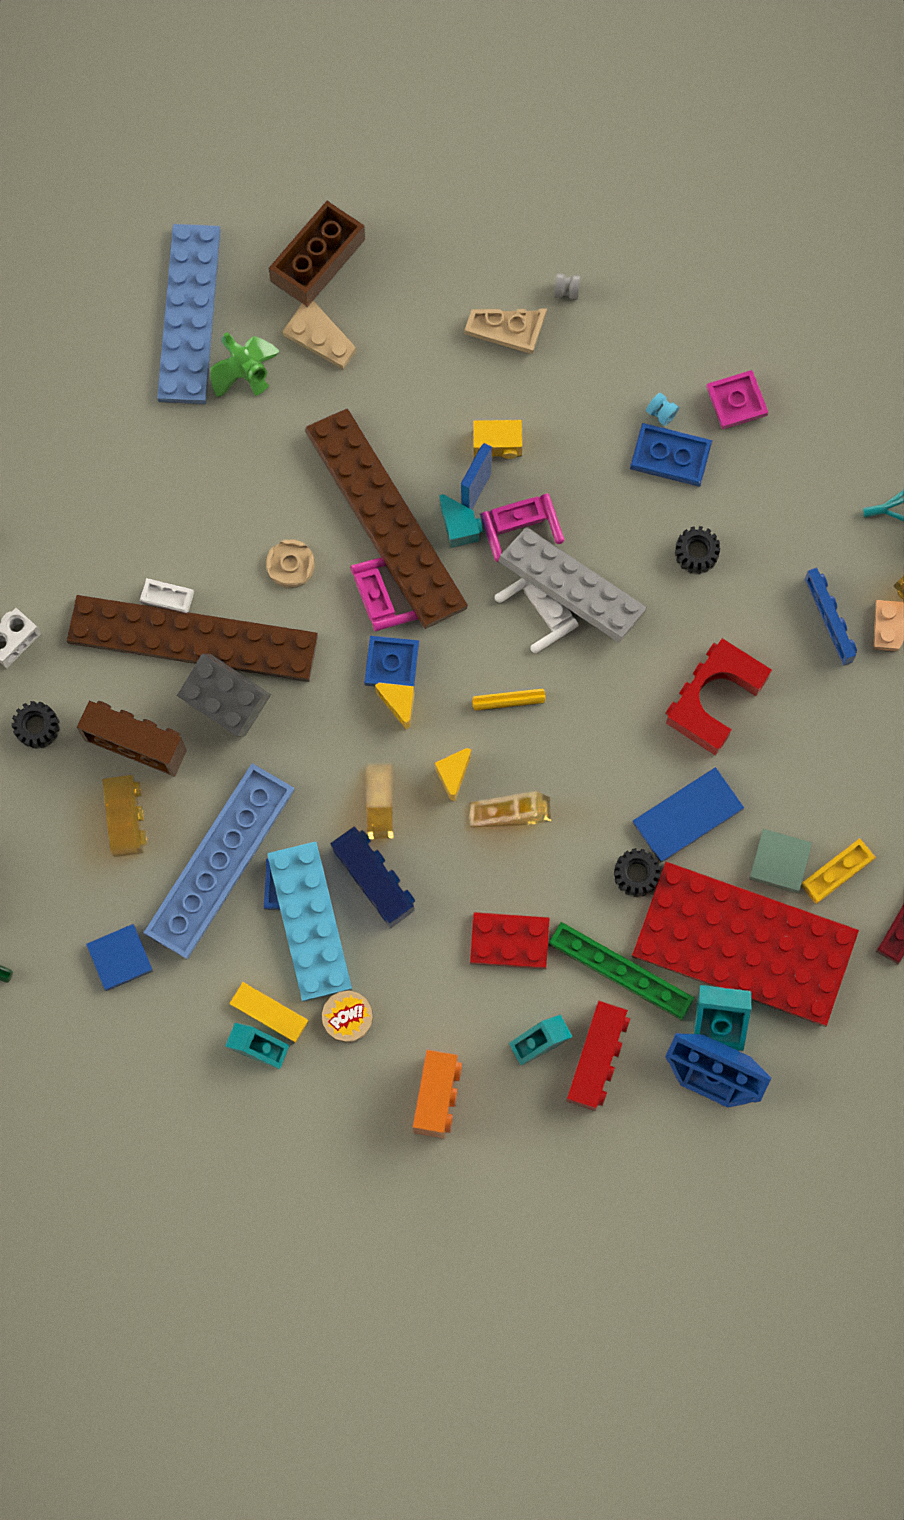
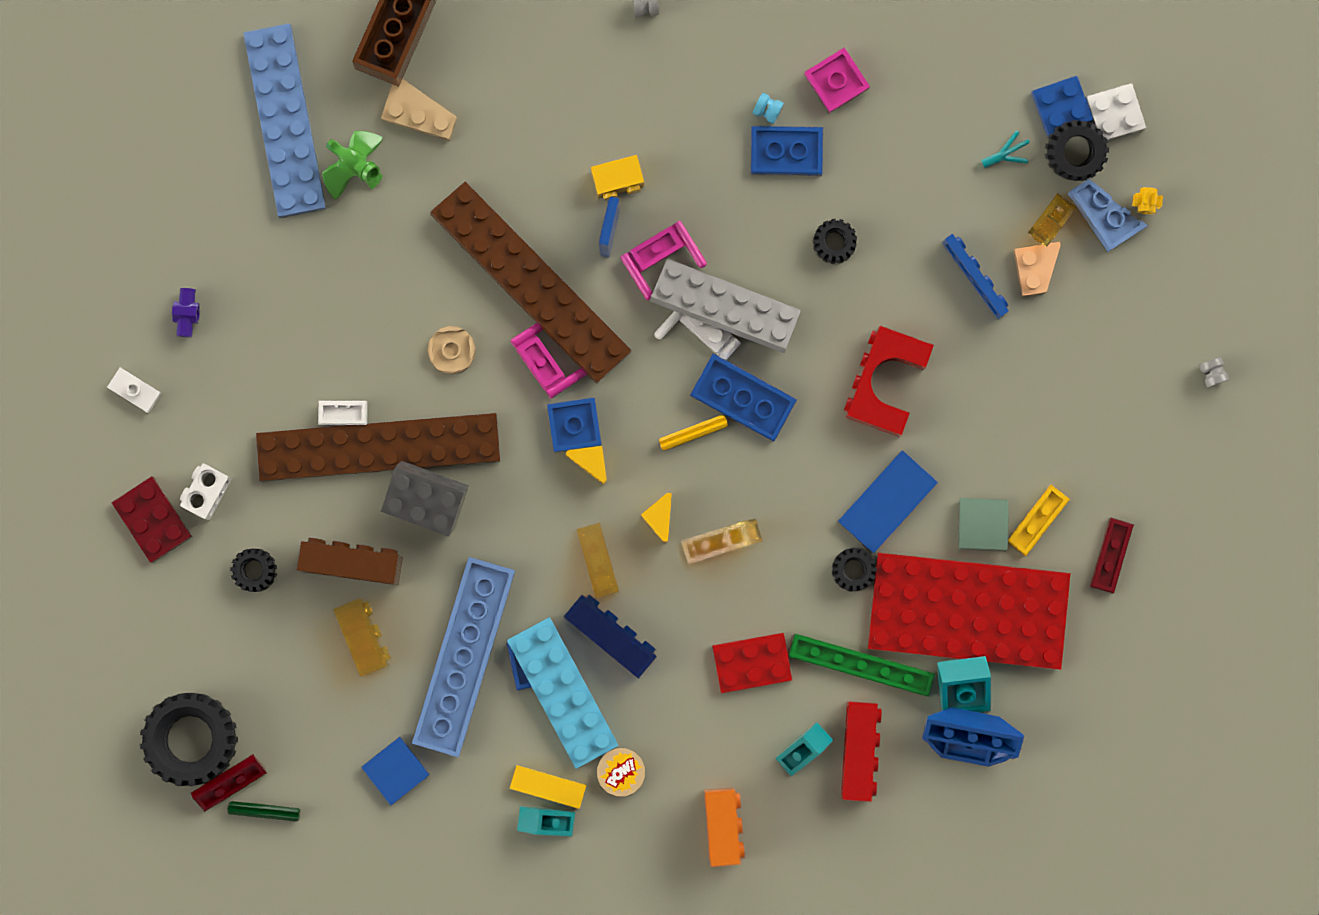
camera: 20 degrees left, 10 degrees up
(42, 465) = (185, 312): none -> dark purple axle
(459, 522) = (602, 270): teal slope -> none
(507, 328) = (598, 61): tan wing -> none
(567, 677) = (743, 397): none -> blue tile

